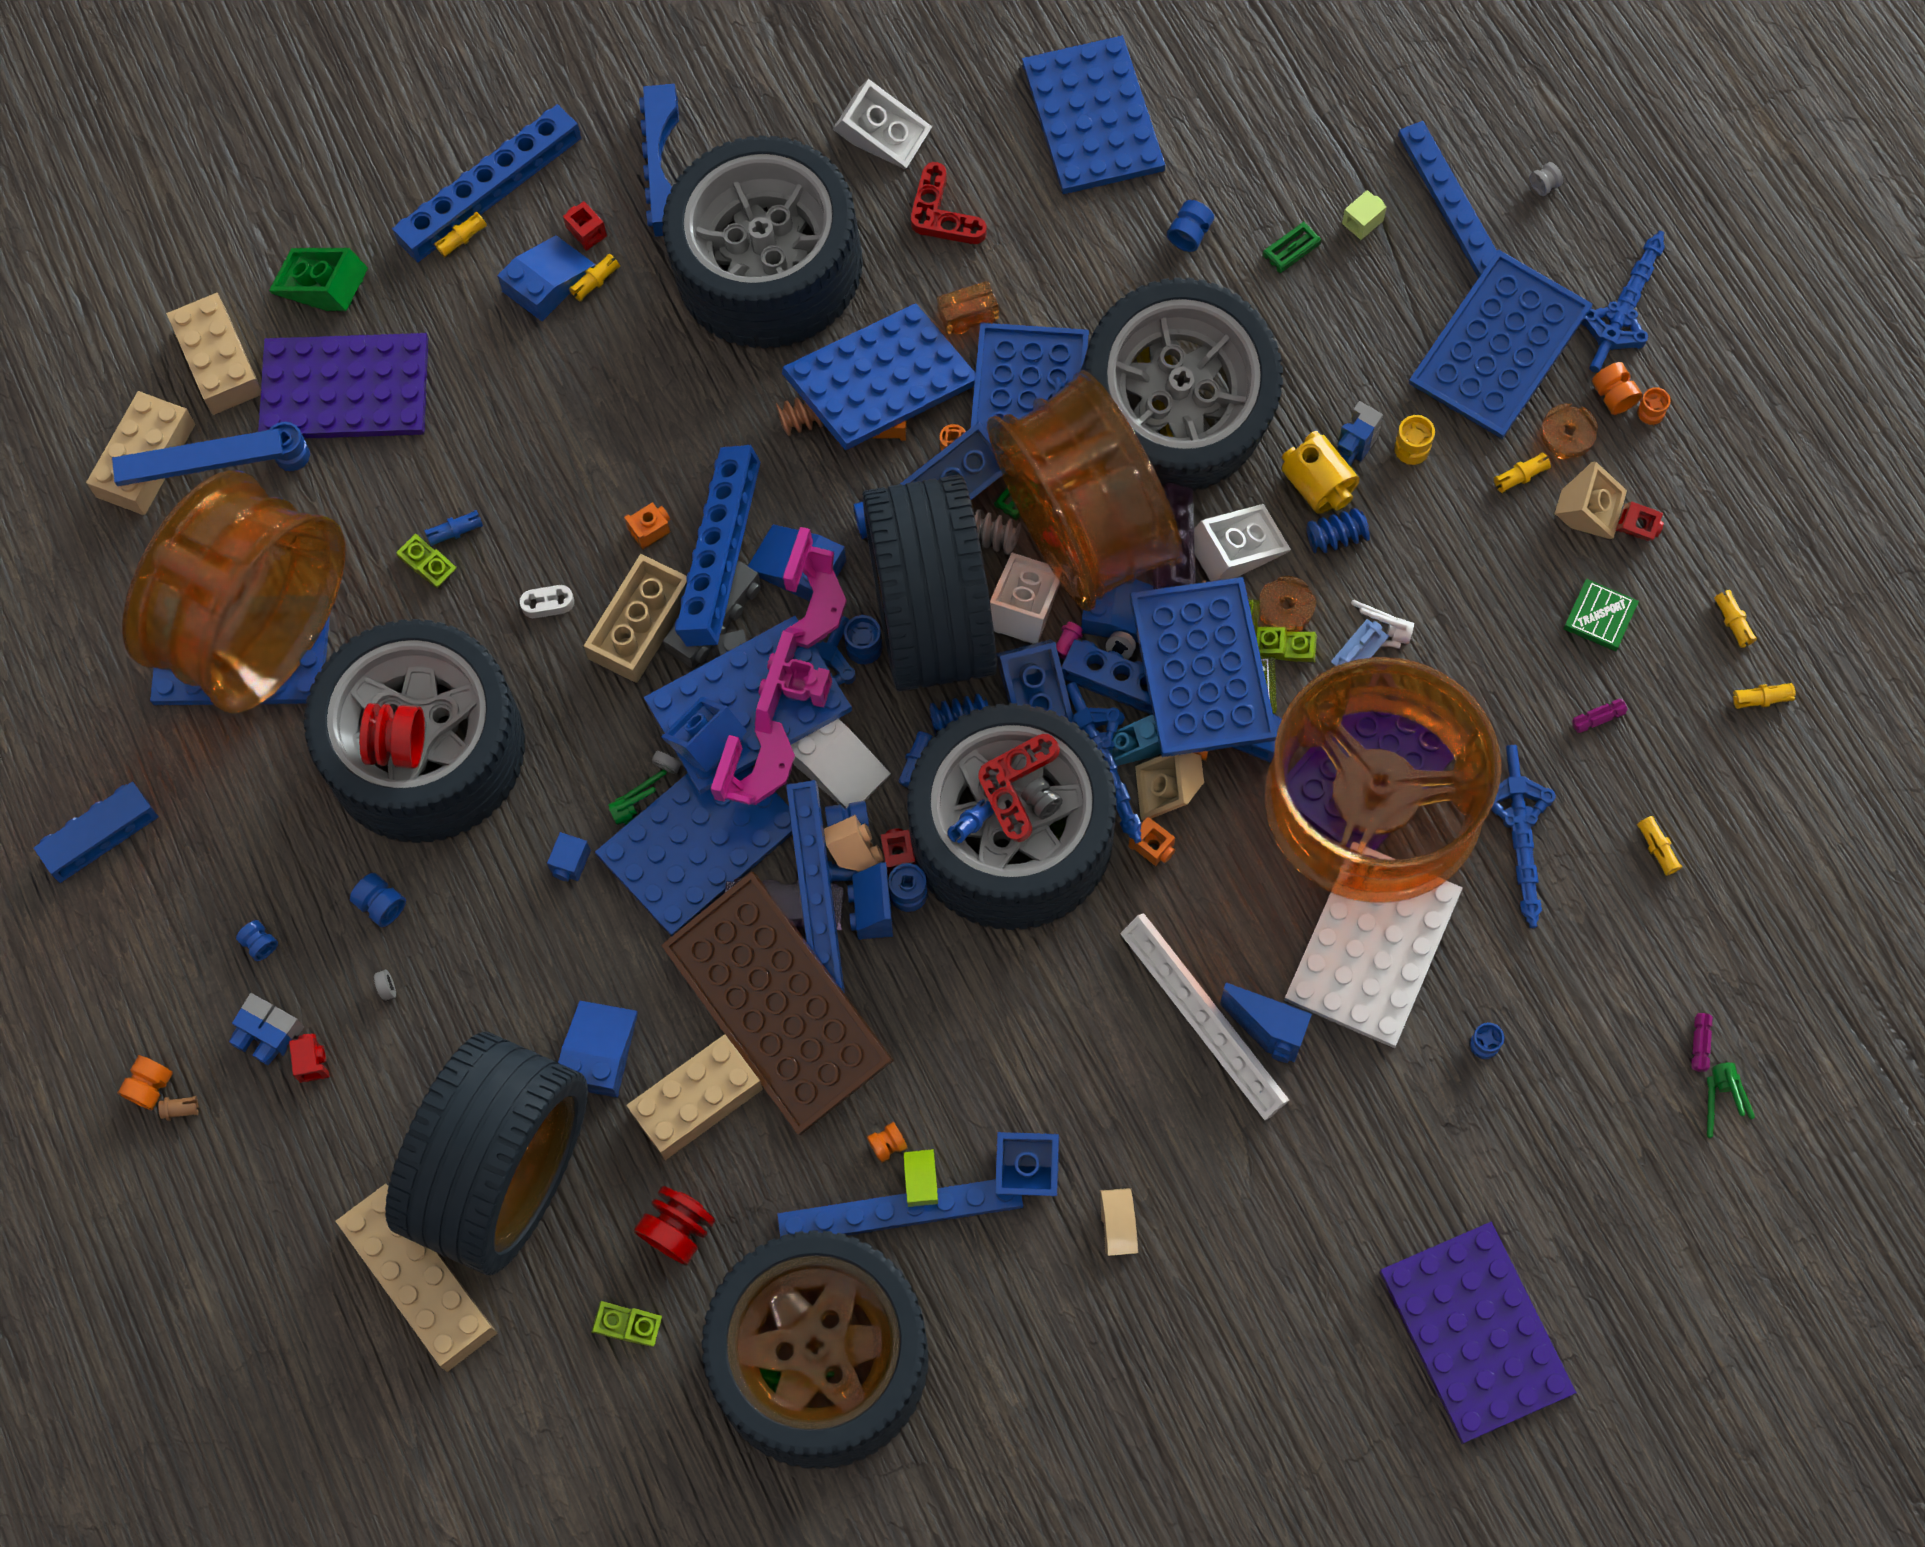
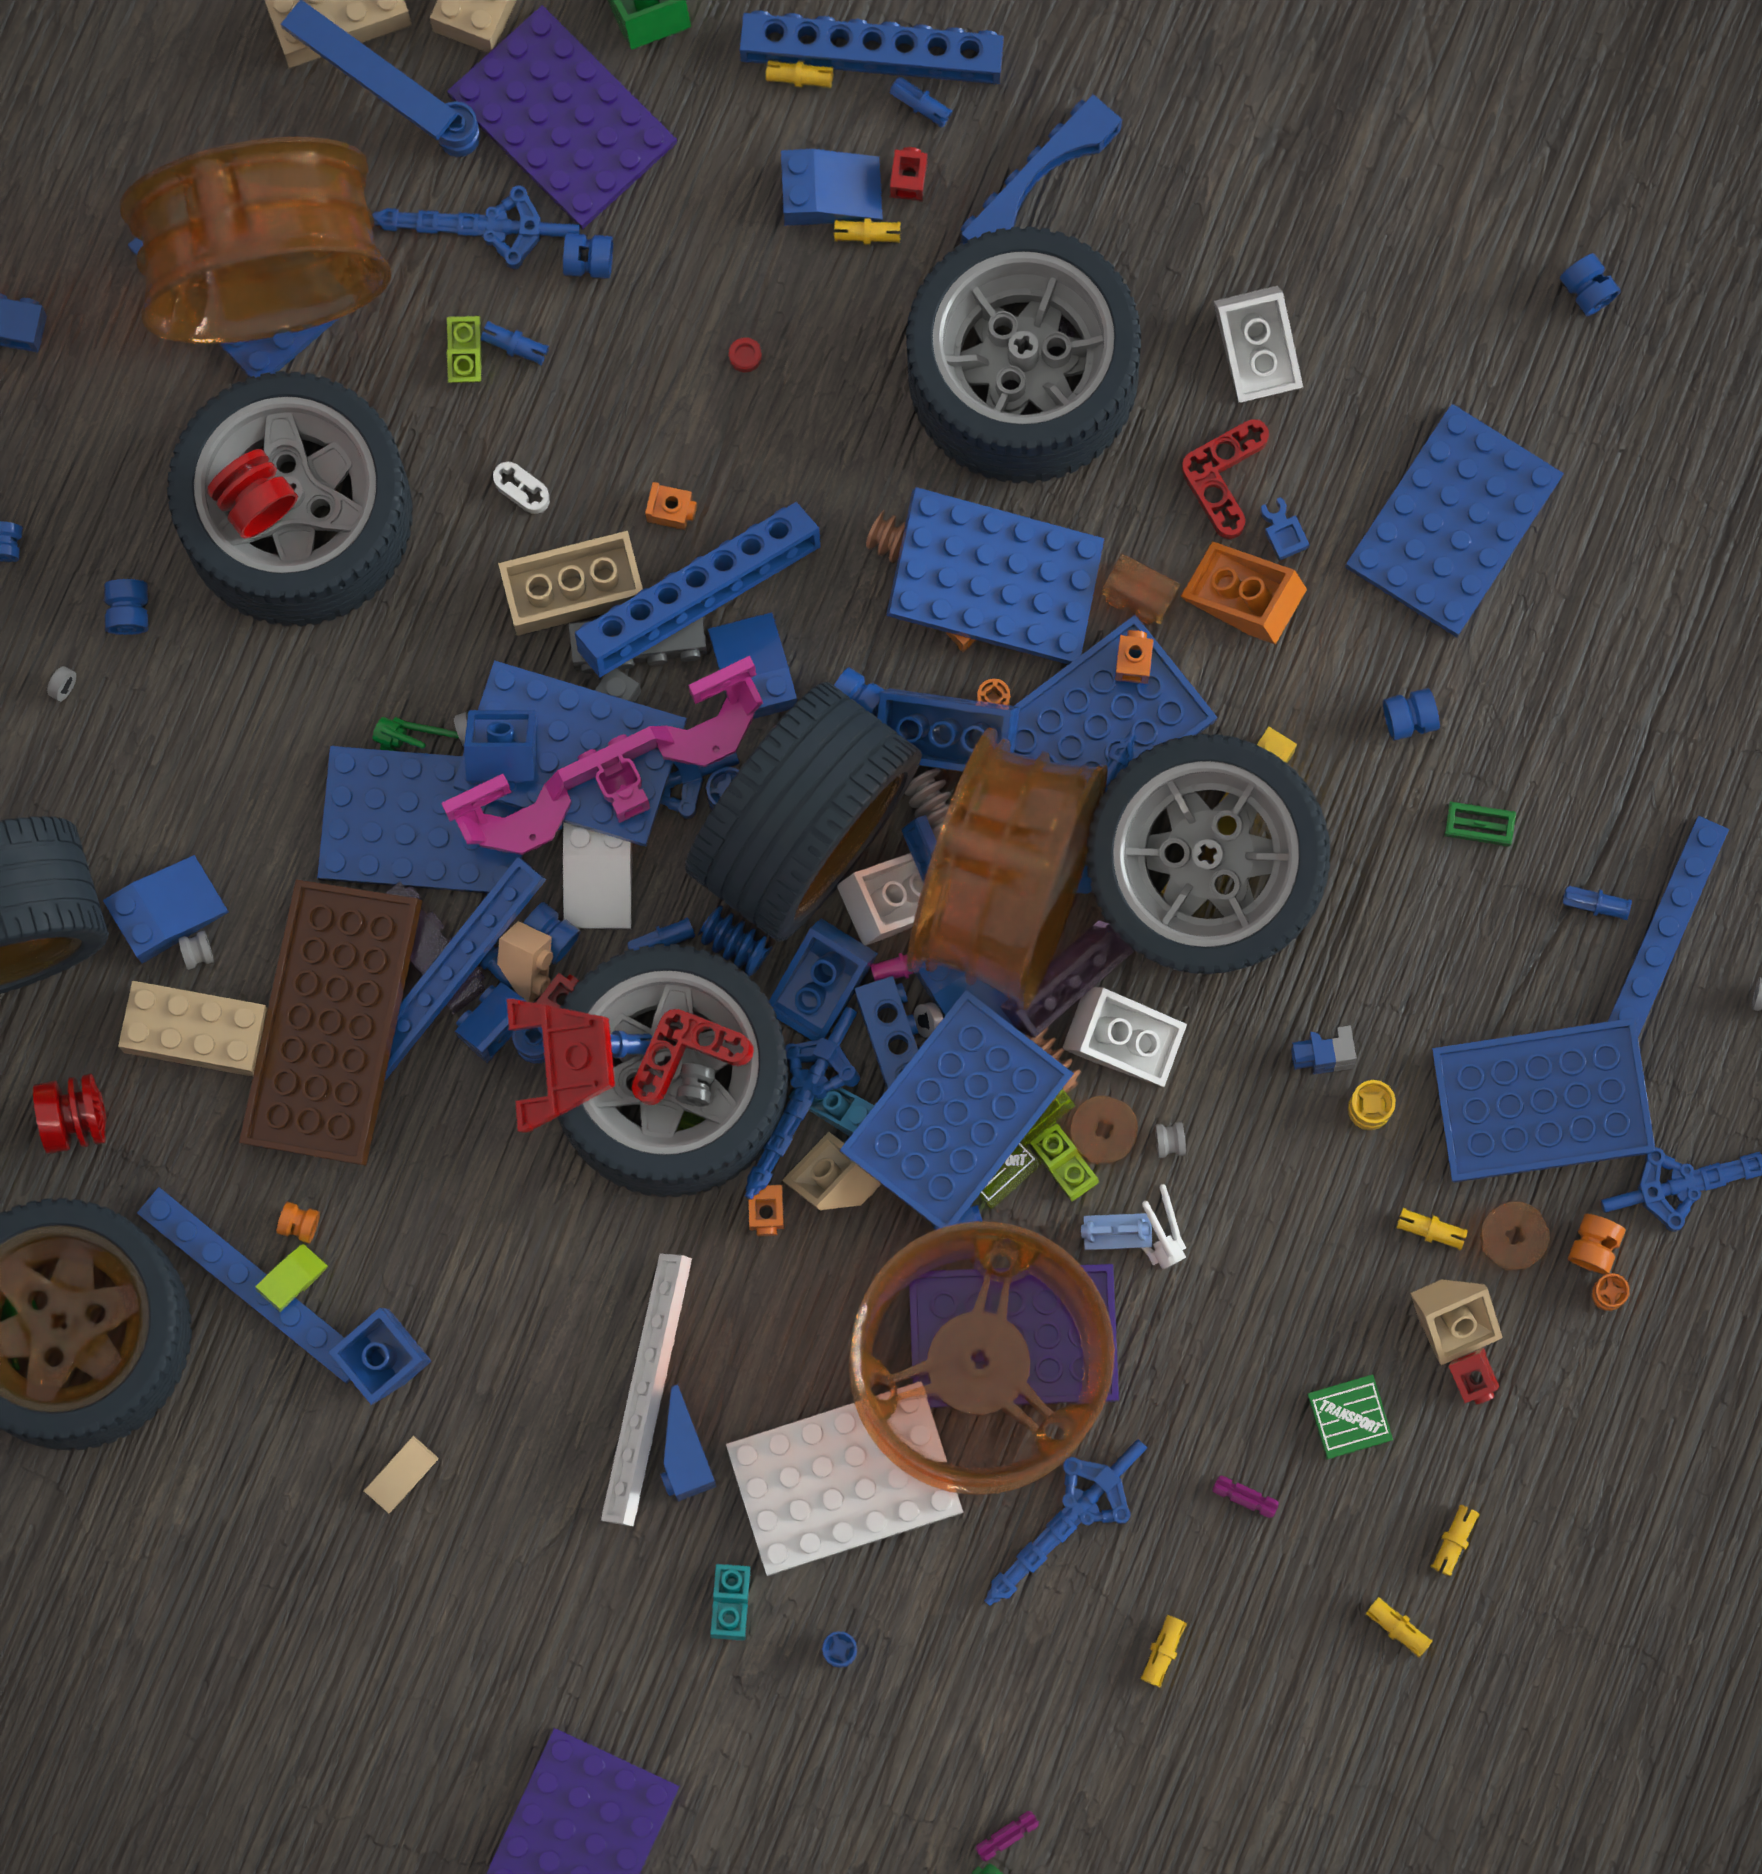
camera: 45 degrees right, 10 degrees up
(371, 478) = (492, 226): none -> blue bar
(453, 434) = (599, 257): none -> blue wheel
(547, 184) = (920, 101): none -> blue axle
(568, 857) = (305, 728): blue brick -> none
(597, 407) = (745, 354): none -> red tile
(643, 1051) = (196, 950): none -> light grey wheel
(957, 846) = (575, 1059): none -> red wing
(1010, 347) = (1130, 668): none -> orange brick
(1012, 206) = (1284, 534): none -> blue plate
(1015, 555) = (920, 843): none -> blue plate
(1026, 253) = (1245, 591): none -> orange slope
(1320, 473) = (1254, 1063): yellow cylinder -> none
(1329, 570) = (1170, 1139): none -> light grey wheel
(1337, 529) = (1216, 1115): blue piece -> none
(1364, 214) = (1573, 861): yellowish green brick -> none
(1392, 1084) = (730, 1602): none -> teal slope
(1401, 223) = (1597, 902): none -> blue axle

